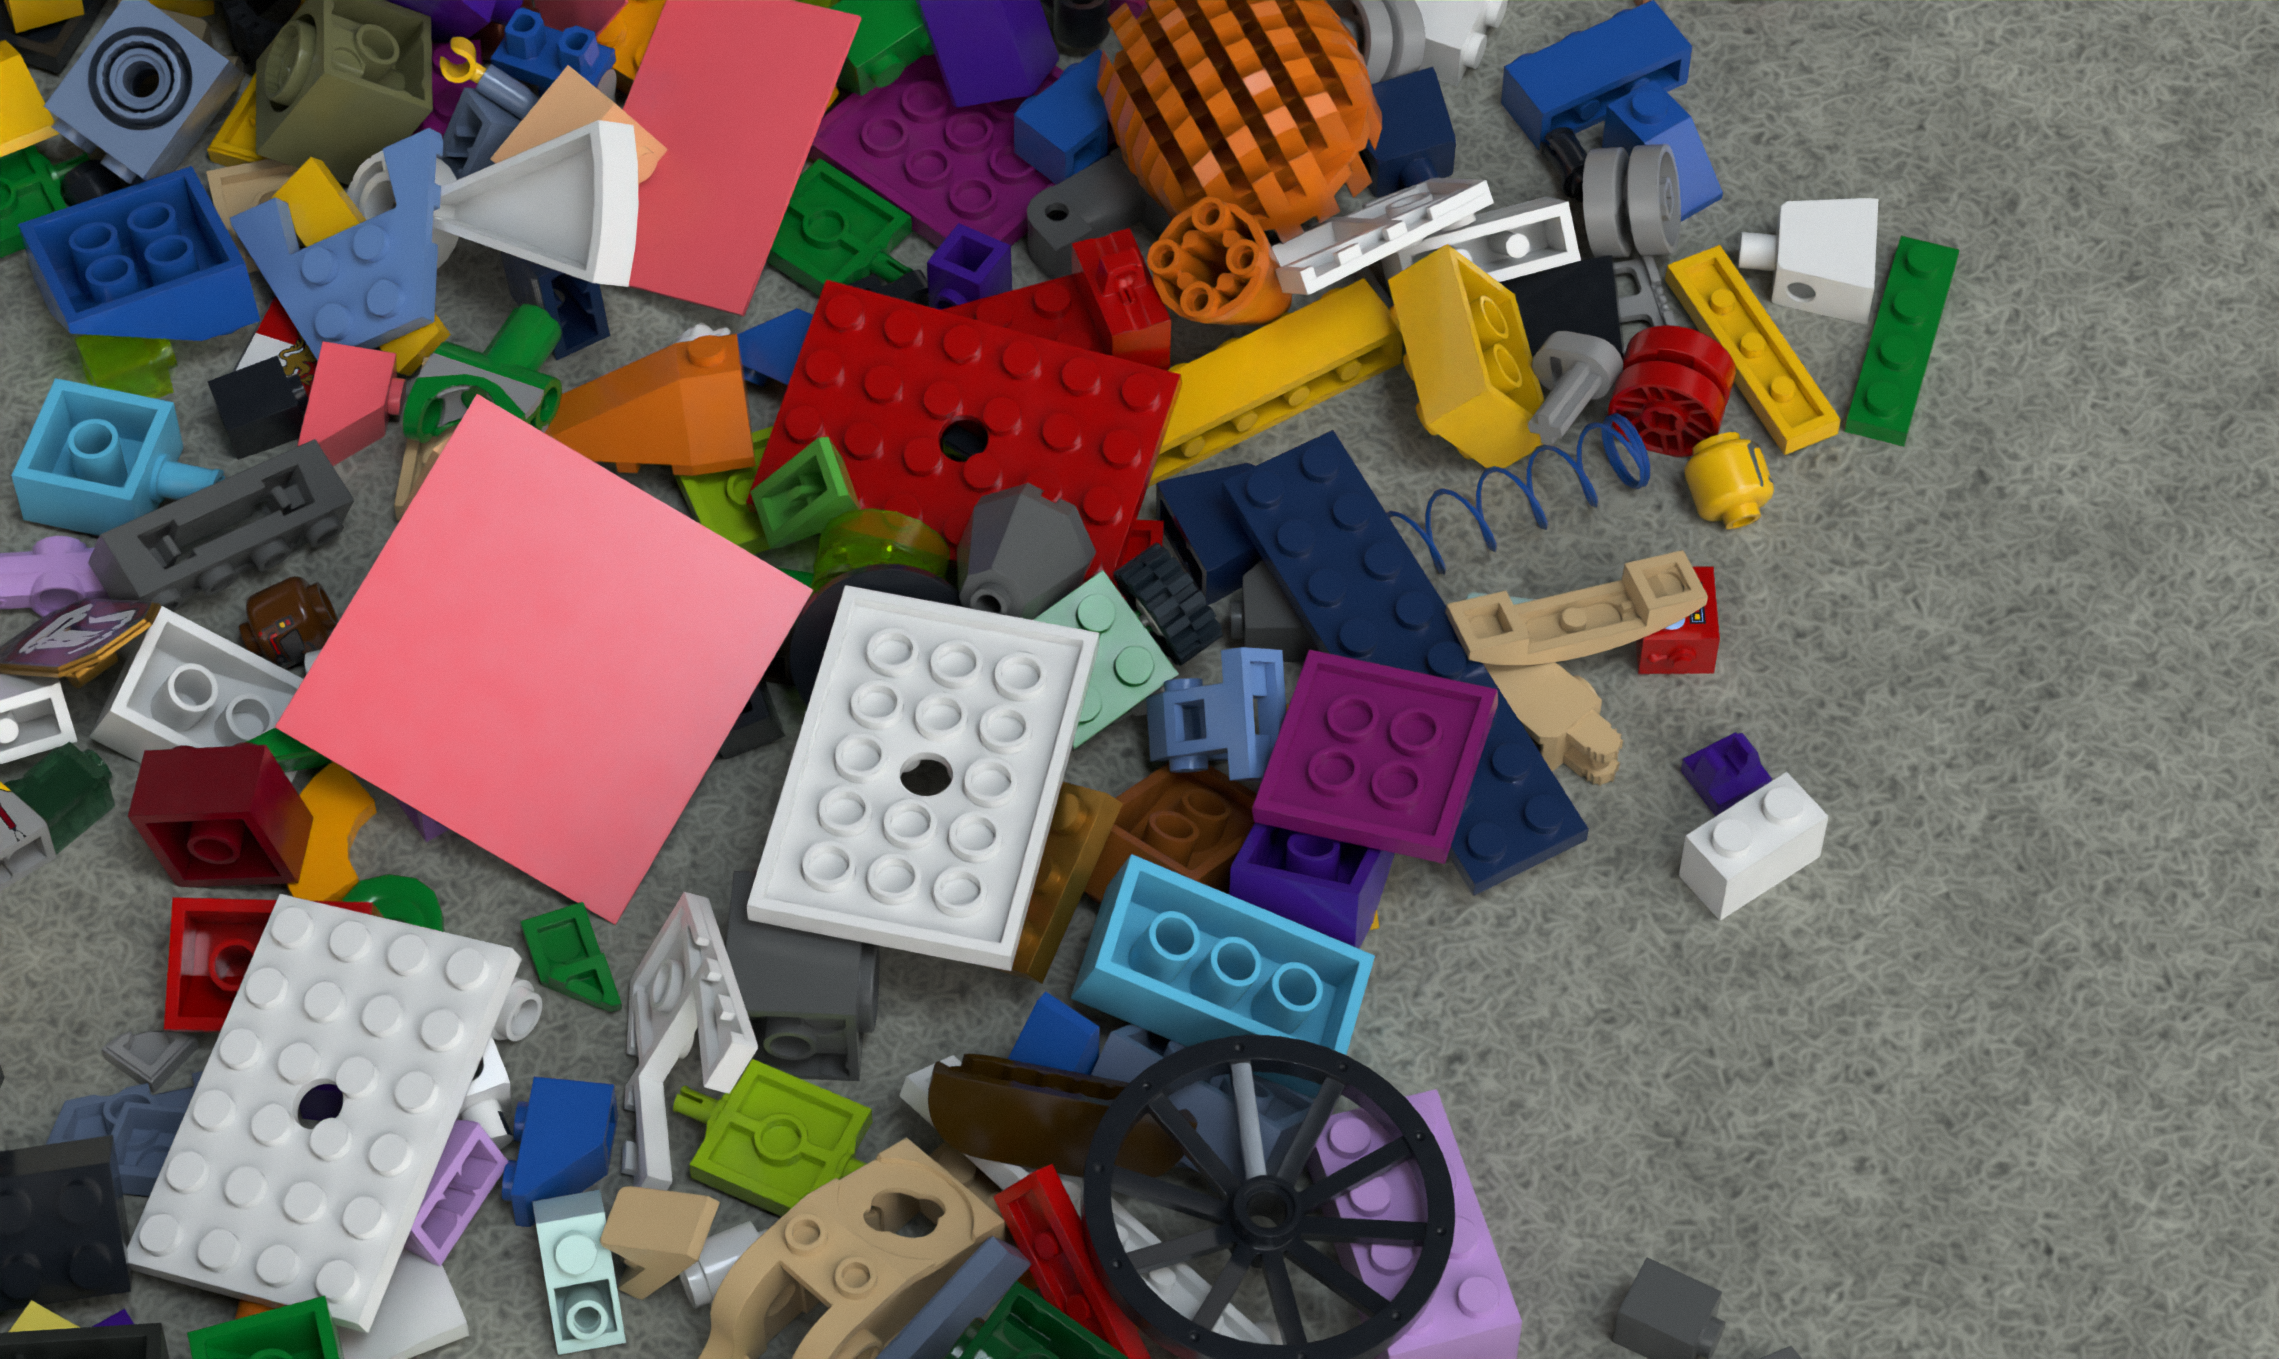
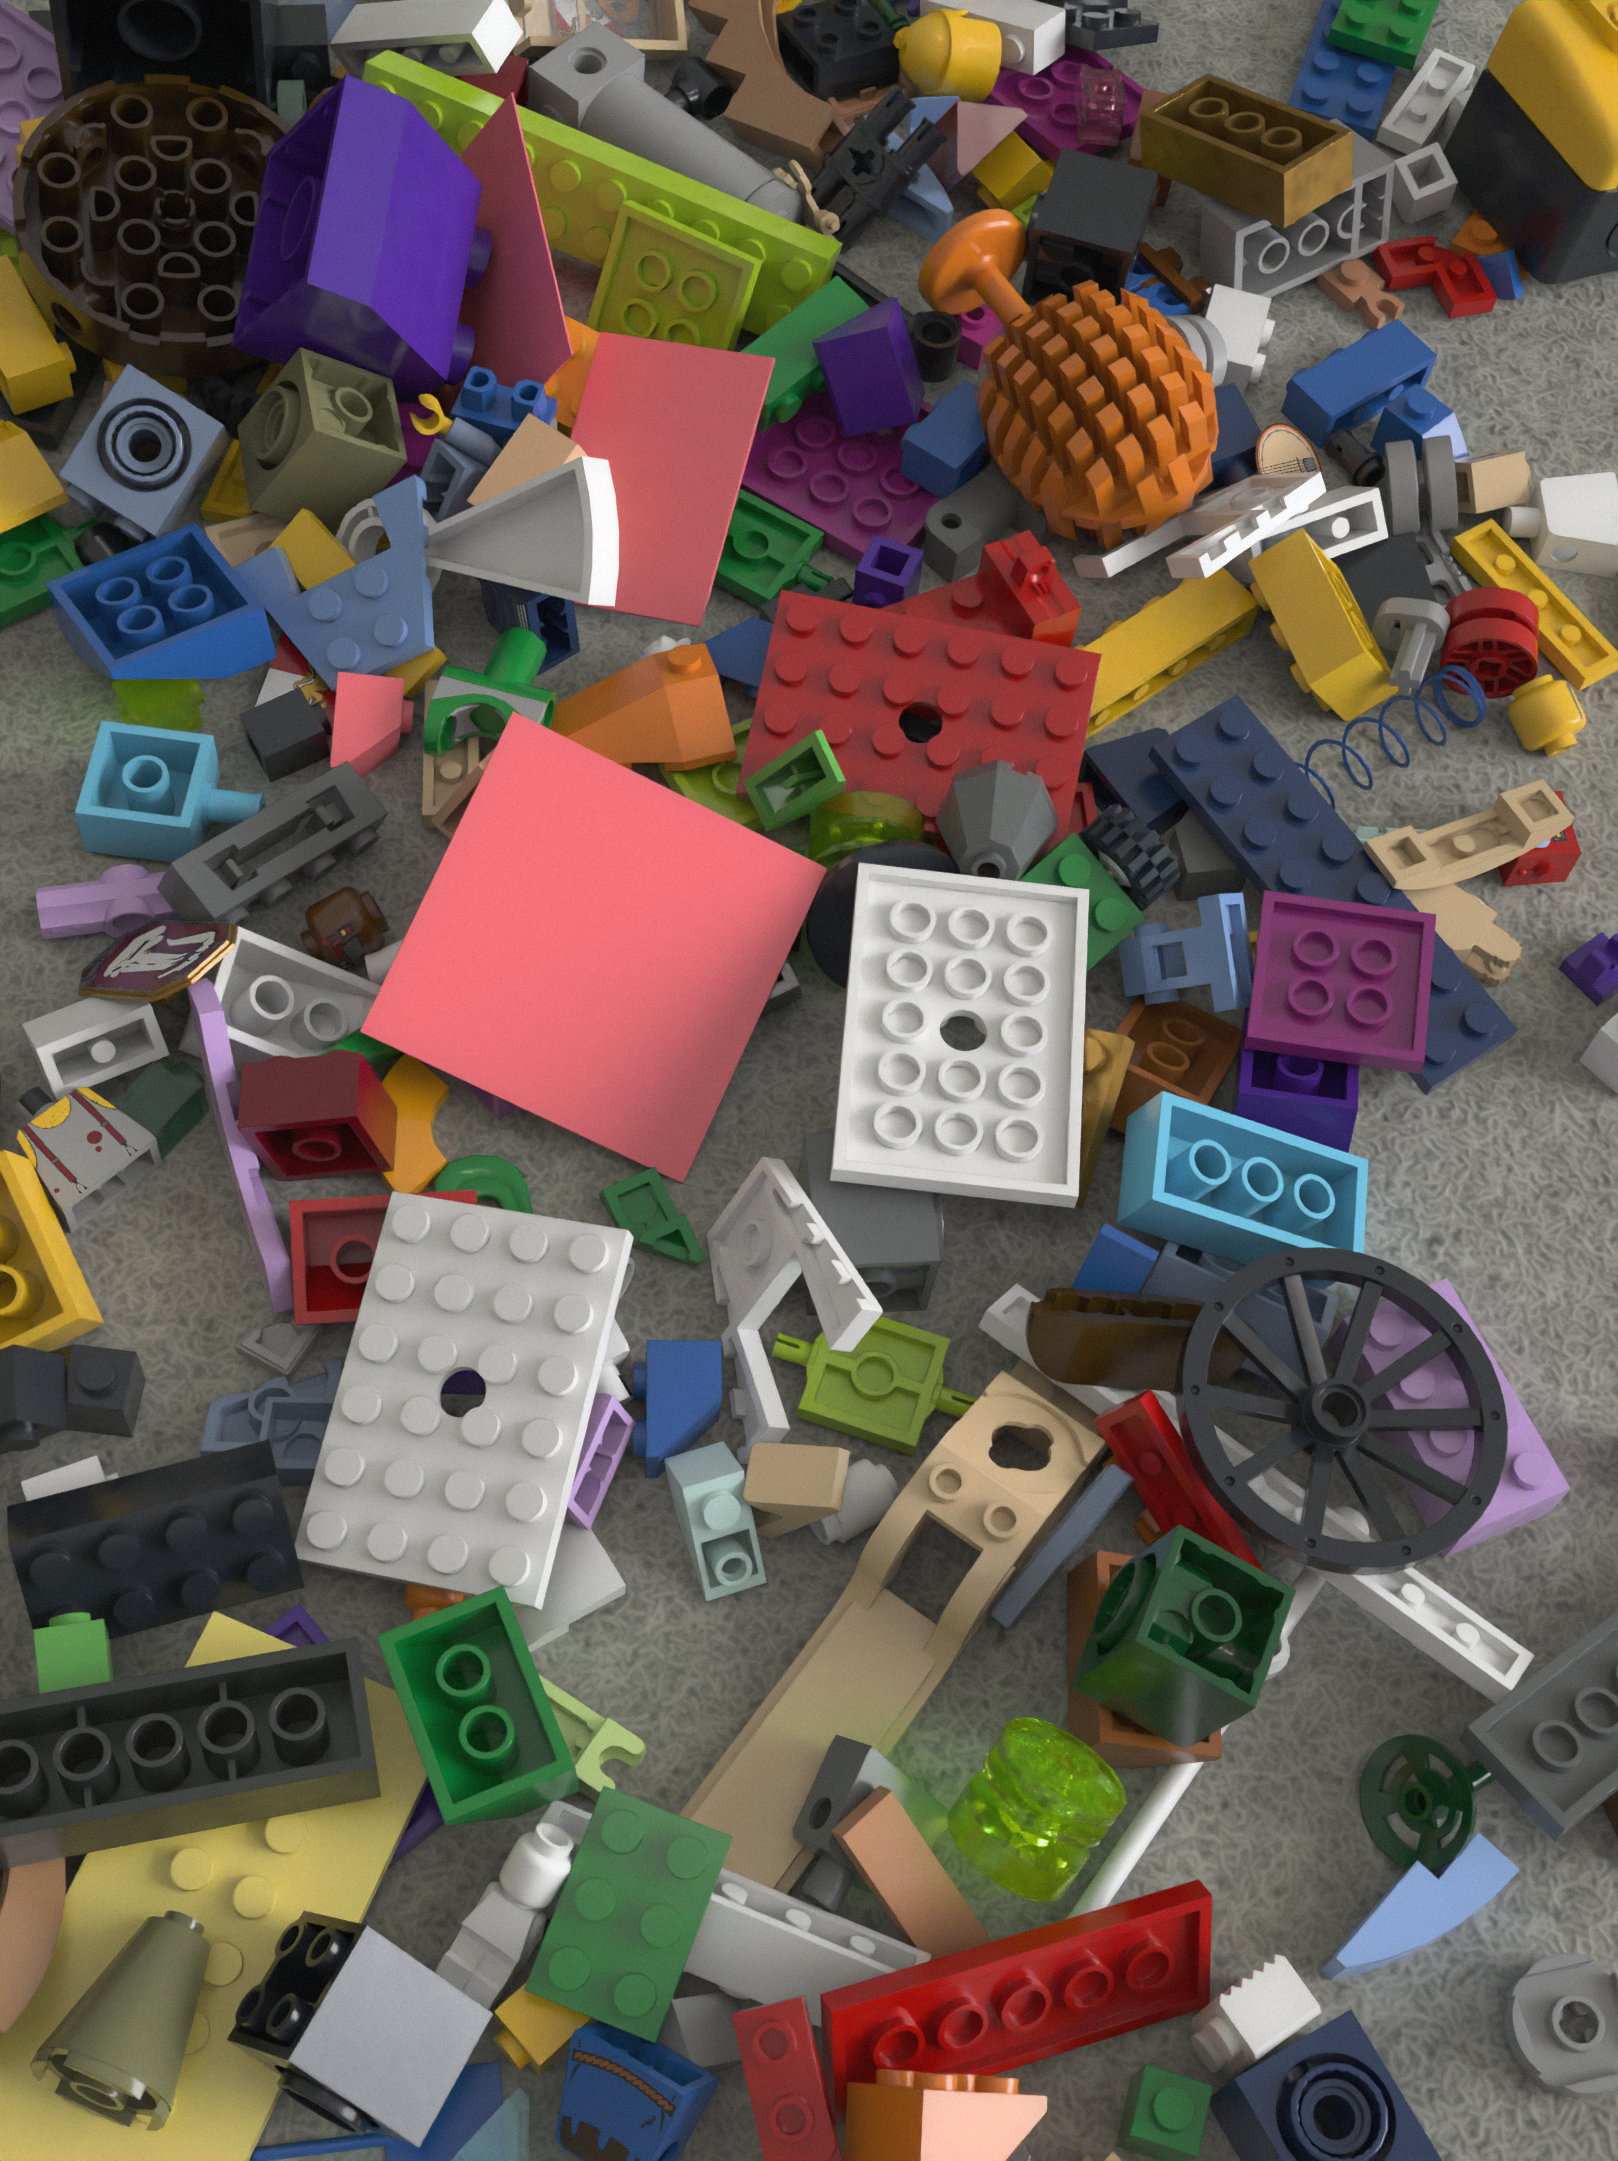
camera: 15 degrees left, 5 degrees up
(135, 850) = (241, 1158): none -> lavender tile
(1218, 267) = (1113, 555): orange cone -> none
(1490, 153) = (1285, 450): none -> tan sticker
(1725, 200) = (1492, 480): none -> tan brick

